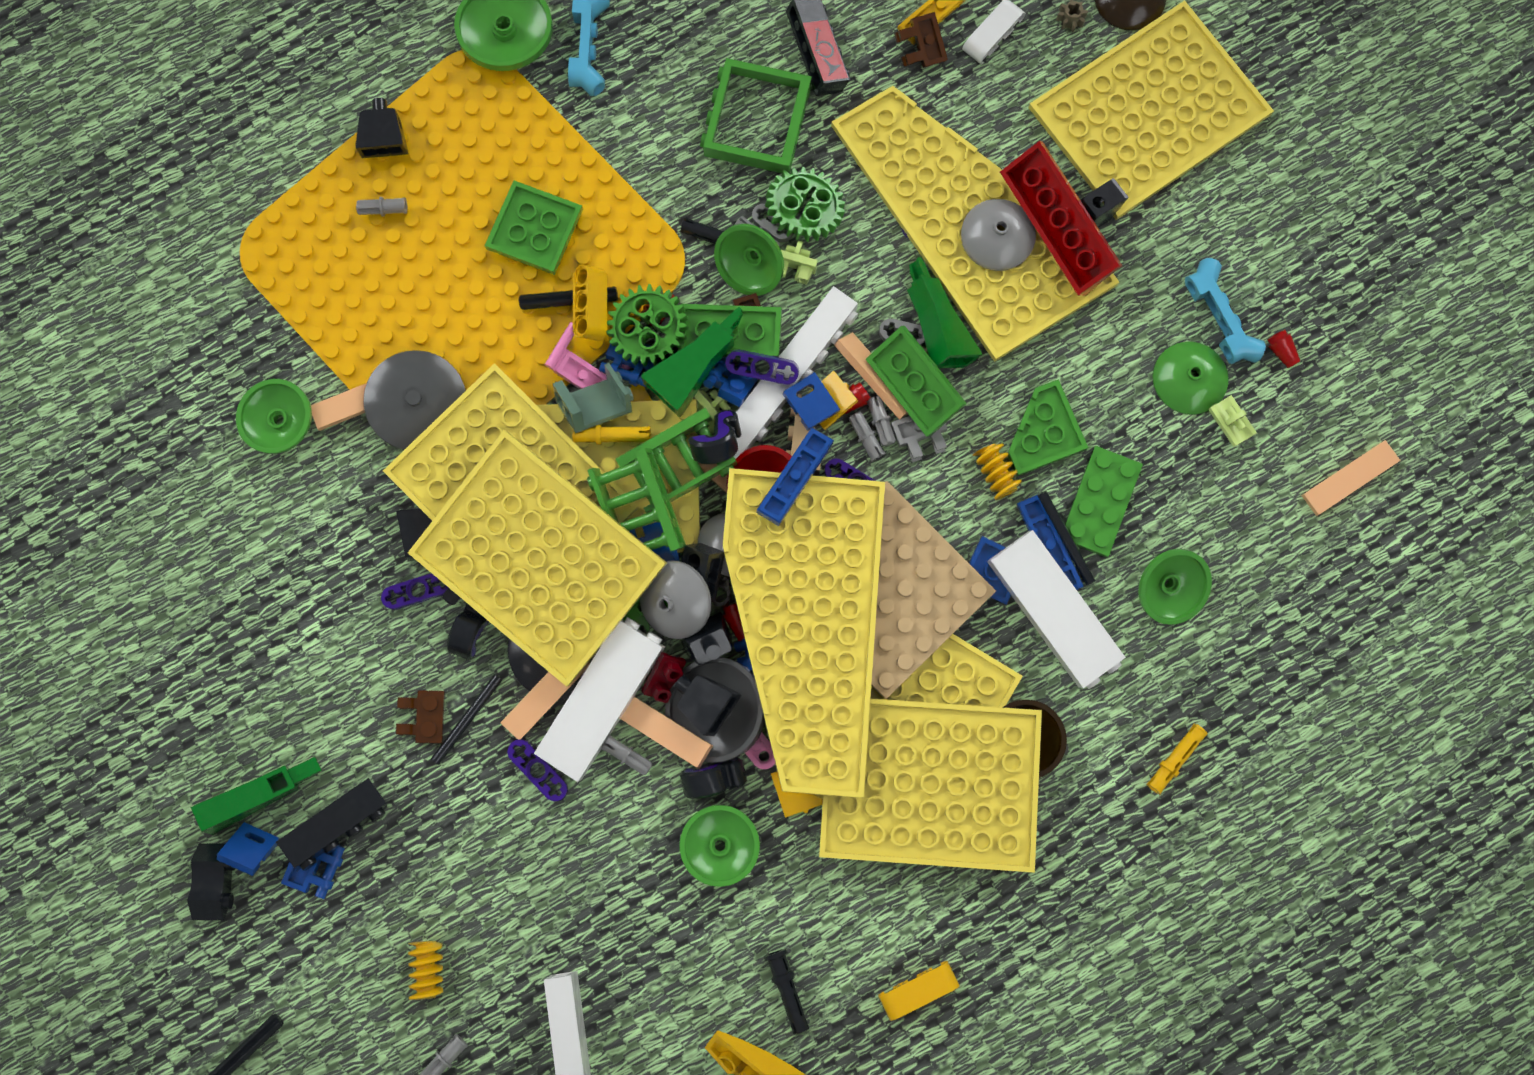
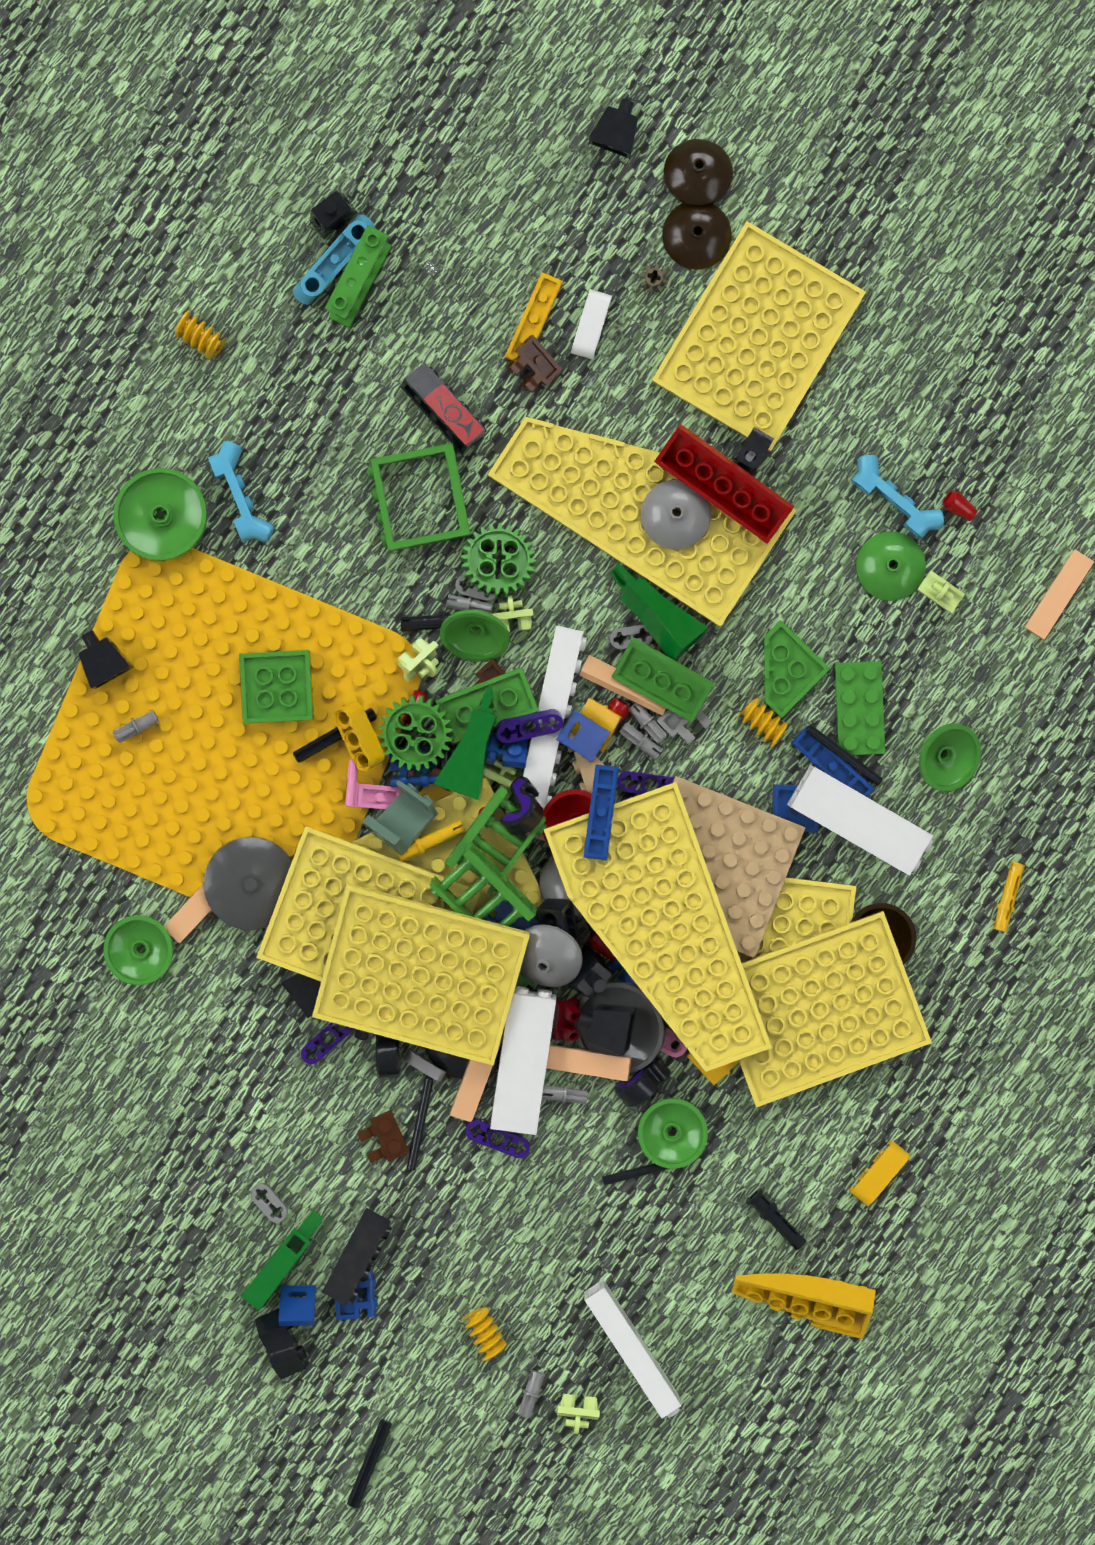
camera: 25 degrees left, 10 degrees up
(281, 728) = (273, 1198): none -> light grey beam
(499, 660) = (424, 1065): none -> light grey beam
(661, 871) = (632, 1173): none -> black piece
(684, 265) = (423, 660): none -> yellowish green hips

